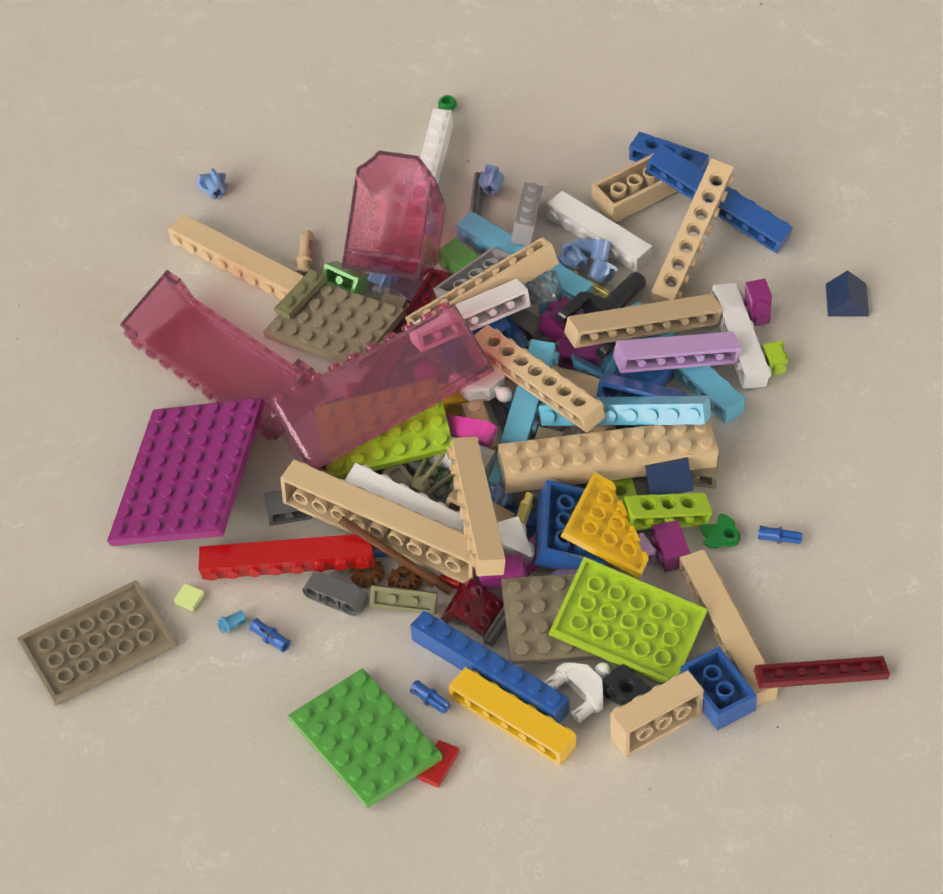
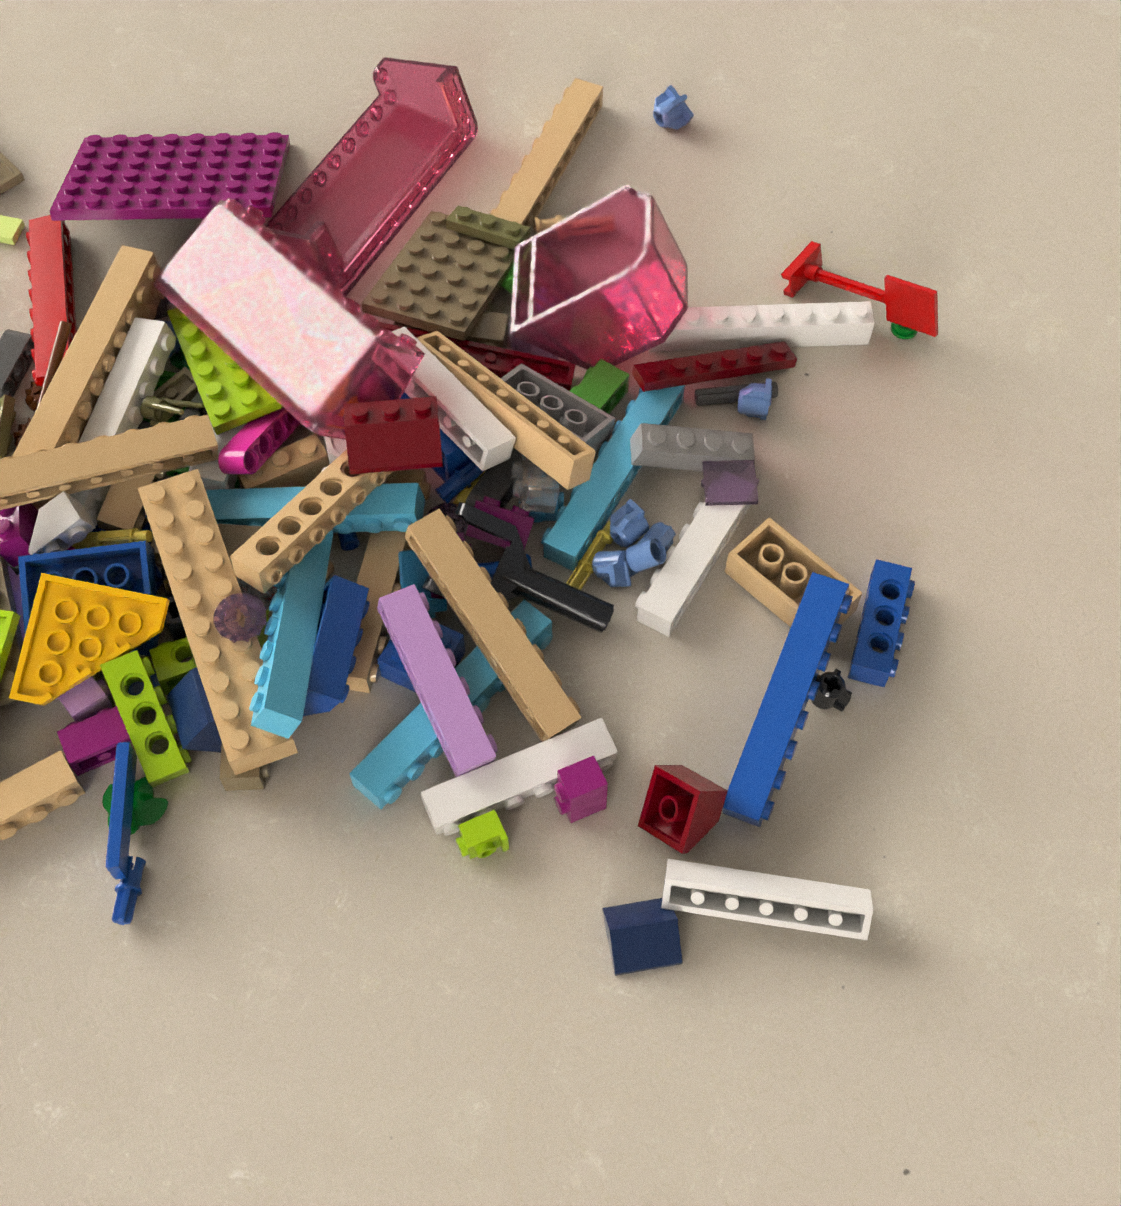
camera: 75 degrees right, 10 degrees up
(444, 91) = (904, 301): none -> red piece
(459, 196) = (713, 366): none -> dark red plate
(507, 331) = (393, 435): none -> dark red slope
(557, 201) = (730, 482): none -> clear purple piece
(630, 421) = (227, 612): none -> gear
(715, 172) = (587, 650): tan brick -> none
(730, 524) = (121, 811): none -> blue tile
(777, 261) = (681, 806): none -> dark red slope
(838, 236) = (767, 899): none -> white brick

